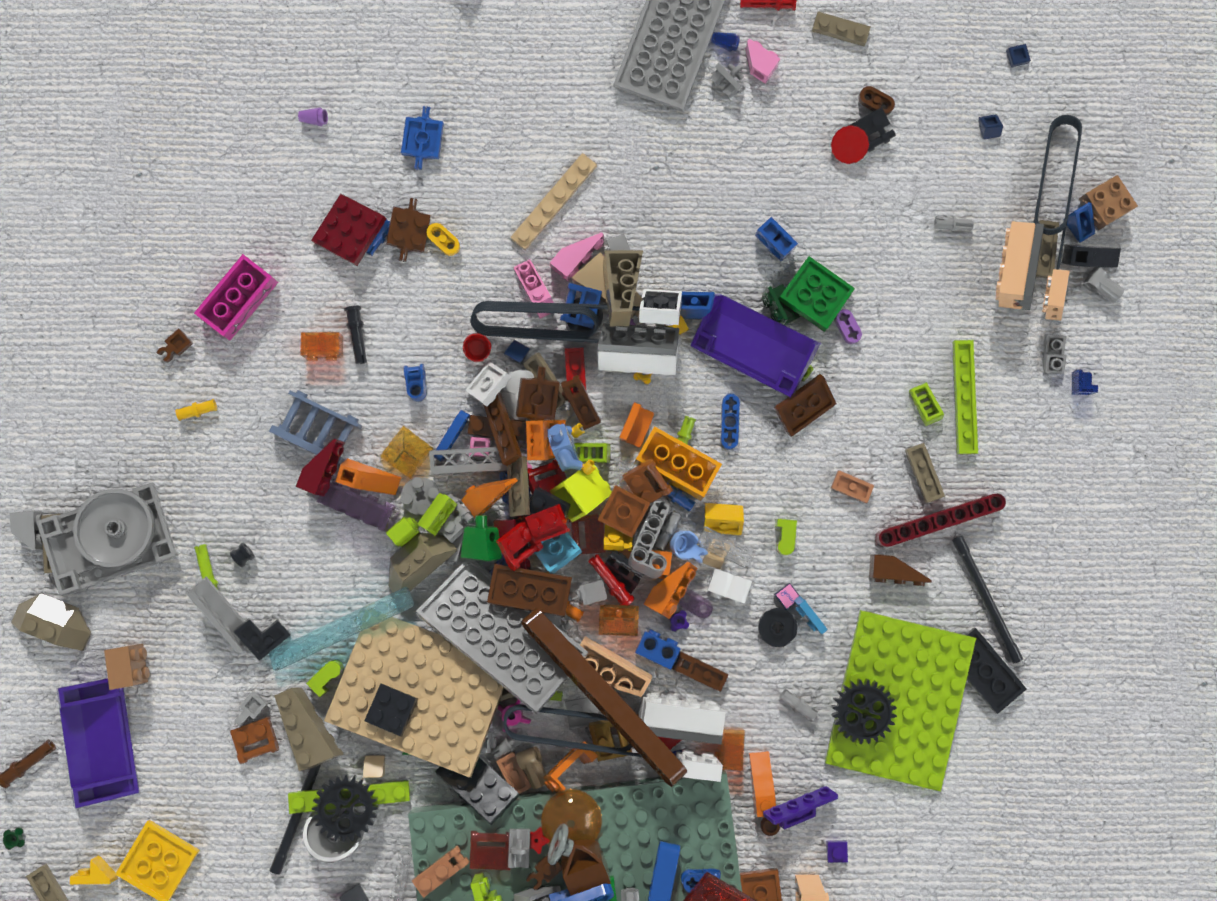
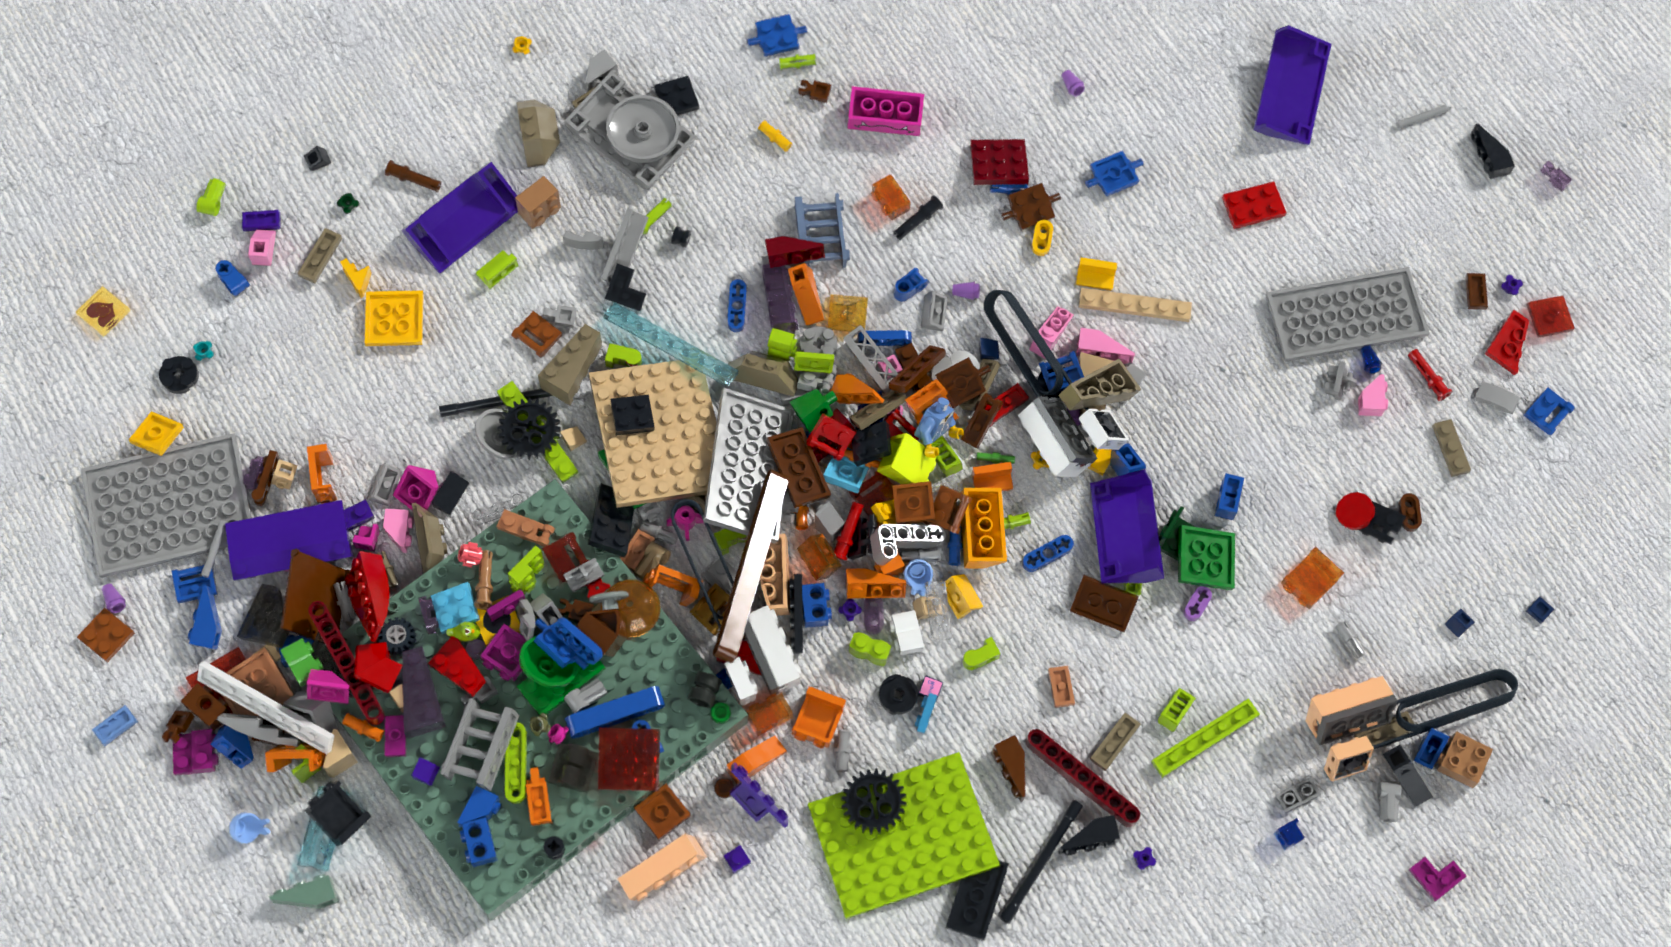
camera: 55 degrees right, 15 degrees down
(97, 345) = (777, 35): none -> blue plate
(99, 472) = (678, 95): none -> black plate
(129, 355) = (785, 62): none -> lime pin
(167, 738) = (497, 268): none -> lime panel
(192, 641) = (588, 241): none -> light grey slope
(324, 541) = (733, 298): none -> blue beam
(451, 335) = (967, 290): none -> medium lavender cone
(452, 376) = (934, 311): none -> light grey slope
(476, 347) = (971, 314): red hair -> none
(488, 383) = (946, 339): white plate -> none
(505, 216) = (1096, 273): none -> yellow panel
(526, 40) = (1254, 205): none -> red plate
(547, 523) = (863, 445): red plate -> none
(619, 410) = (995, 457): none -> bright green bar
(651, 669) = (796, 621): none -> black wing
(690, 806) = (706, 686): none -> pearl dark grey wheel
(700, 671) = (819, 652): reddish brown plate -> none
(714, 799) = (720, 713): none -> green tile
(729, 624) = (865, 647): none -> lime brick
(758, 708) = (818, 717): none -> orange panel
(883, 219) = (1312, 578): none -> clear orange panel
(992, 541) = (1097, 833): none -> black slope
(1028, 513) = (1142, 864): none -> dark purple plate
(1190, 290) = (1437, 882): none -> magenta plate

